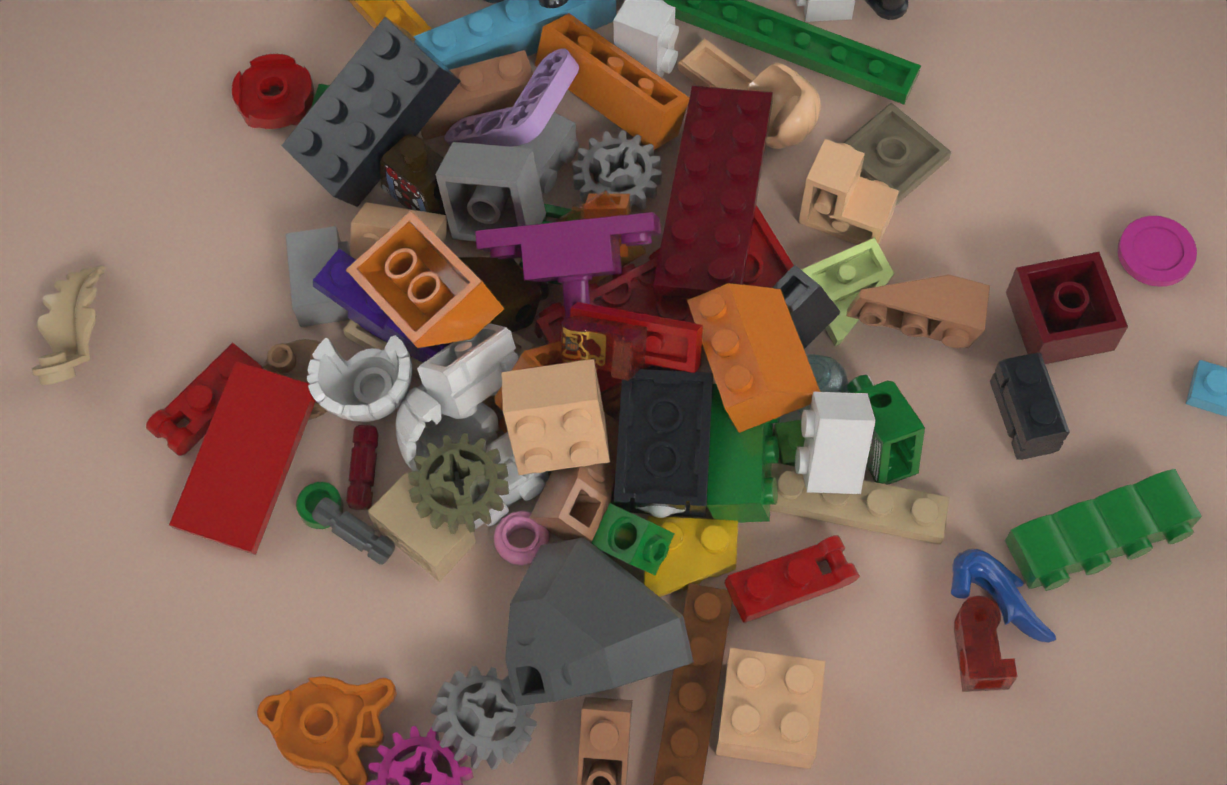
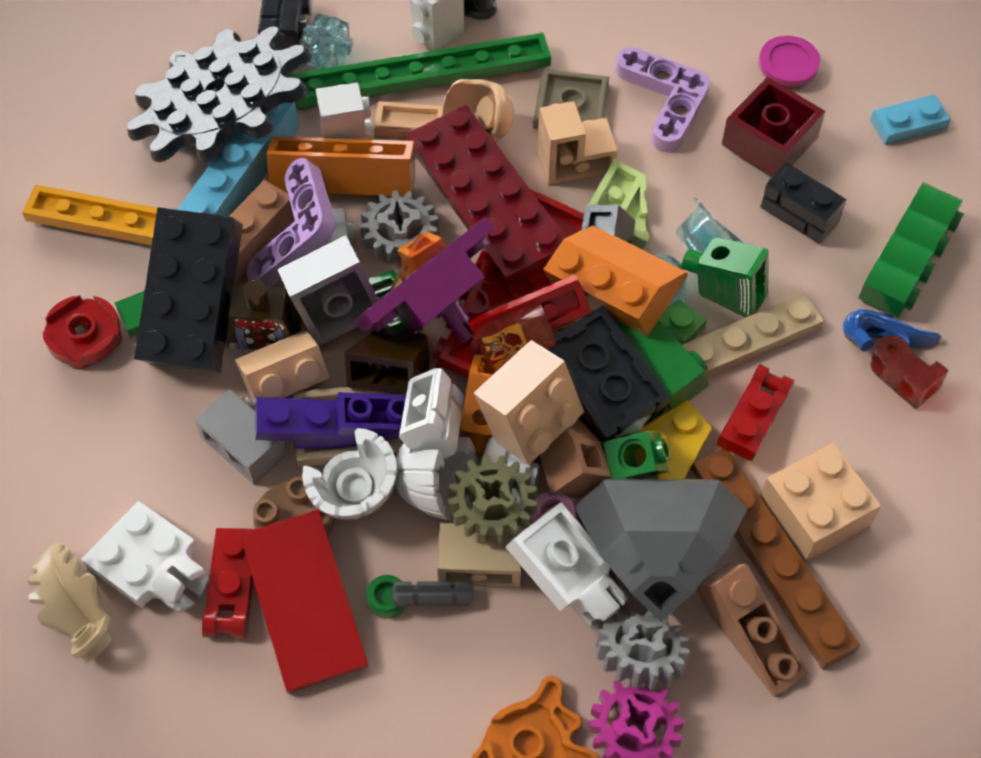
camera: 40 degrees left, 5 degrees down
(158, 332) = (148, 560): none -> white plate
(362, 467) = (395, 547): dark red axle -> none
(424, 286) = (354, 373): orange slope -> none
(474, 589) = (568, 566): none -> white plate
(836, 442) = (718, 298): white brick -> none
(903, 365) = (701, 228): none -> clear light blue piece
(932, 307) = (698, 173): nougat slope -> none
(1009, 204) = (679, 94): none -> lavender beam

